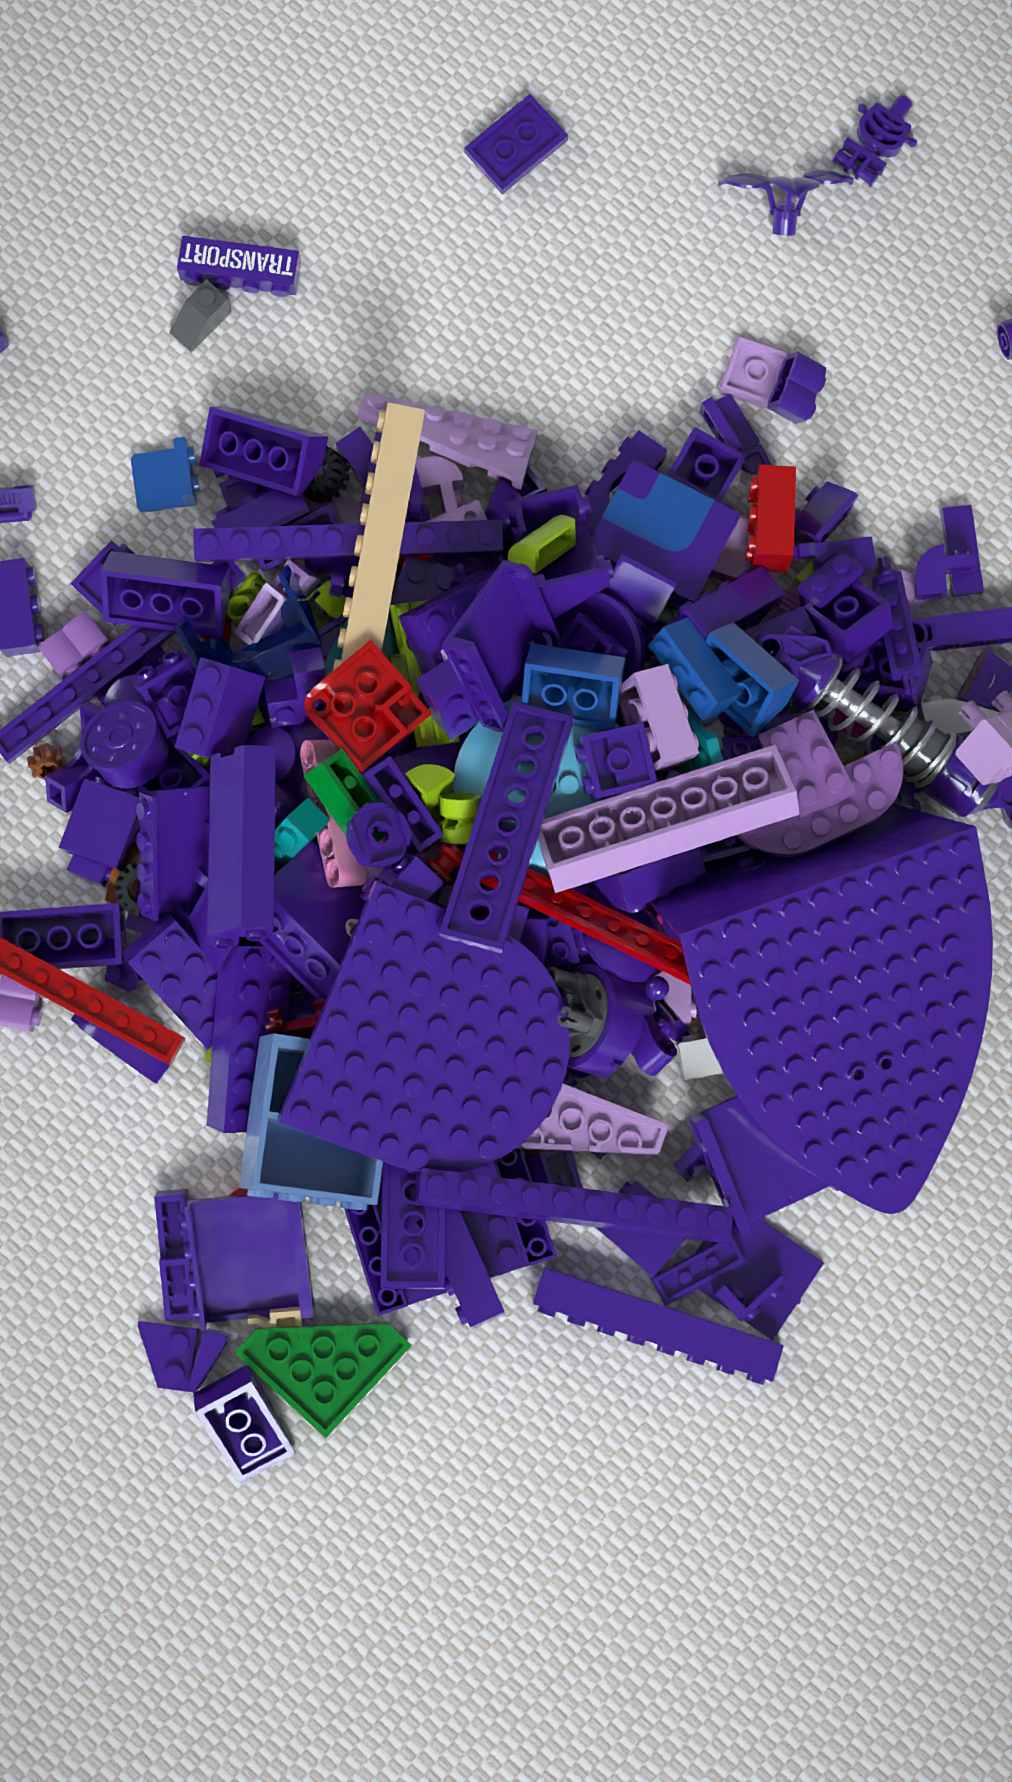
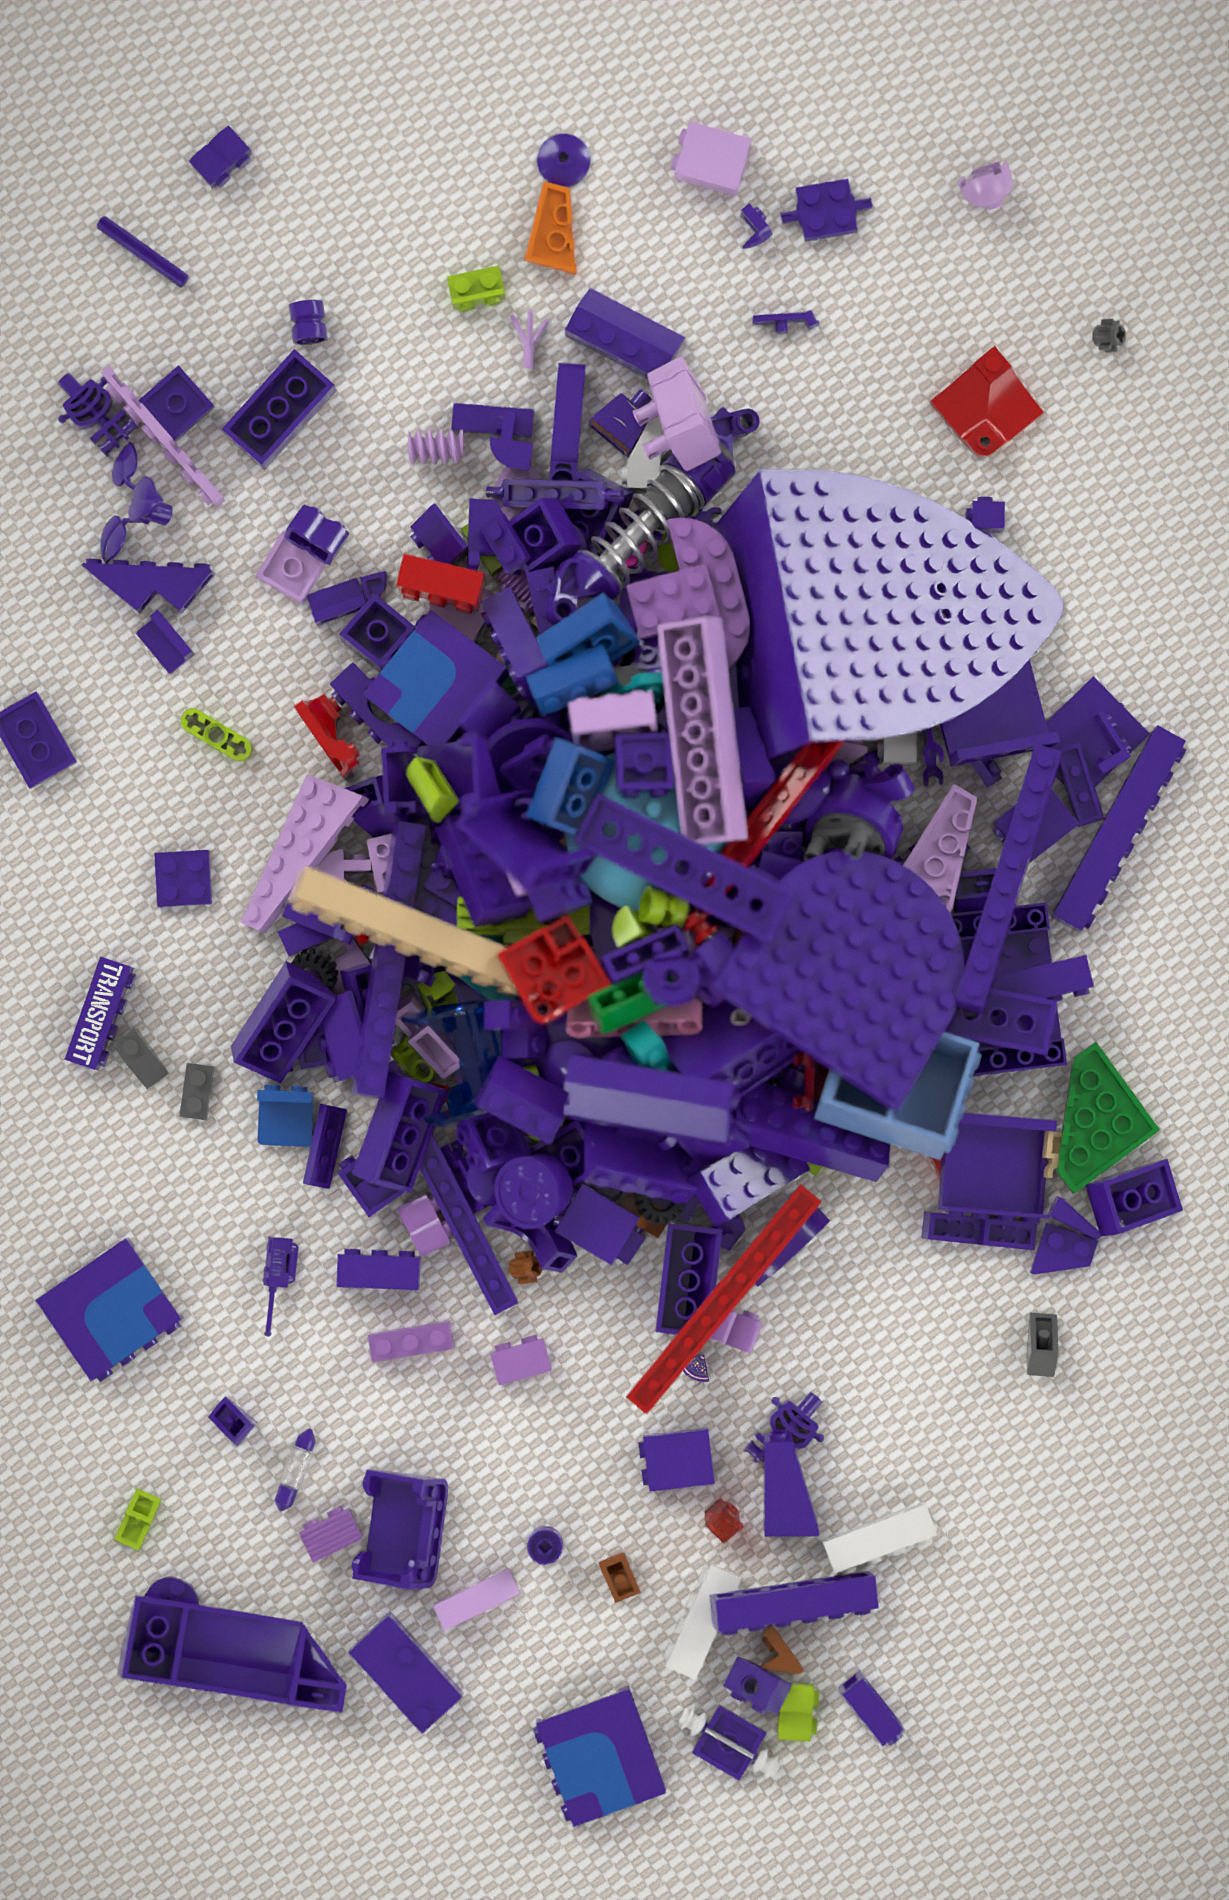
camera: 80 degrees left, 5 degrees up
(59, 1350) = (1042, 1344): none -> dark grey slope
(140, 525) = (324, 1146): none -> dark purple plate
(176, 383) = (196, 1091): none -> dark grey plate
(400, 325) = (183, 878): none -> dark purple plate
(560, 307) = (237, 739): none -> lime beam
(587, 431) = (321, 719): none -> red slope
(648, 258) = (164, 642): none -> dark purple panel
(695, 1097) = (929, 757): none -> dark purple flag
(705, 221) = (142, 582): none -> dark purple slope
(872, 197) = (157, 433): none -> lavender wing
(904, 219) = (177, 403): none -> dark purple plate
(917, 493) = (435, 447): none -> lavender piece
(922, 322) = (279, 409): none -> dark purple brick
(979, 1106) = (987, 514): none -> dark purple brick

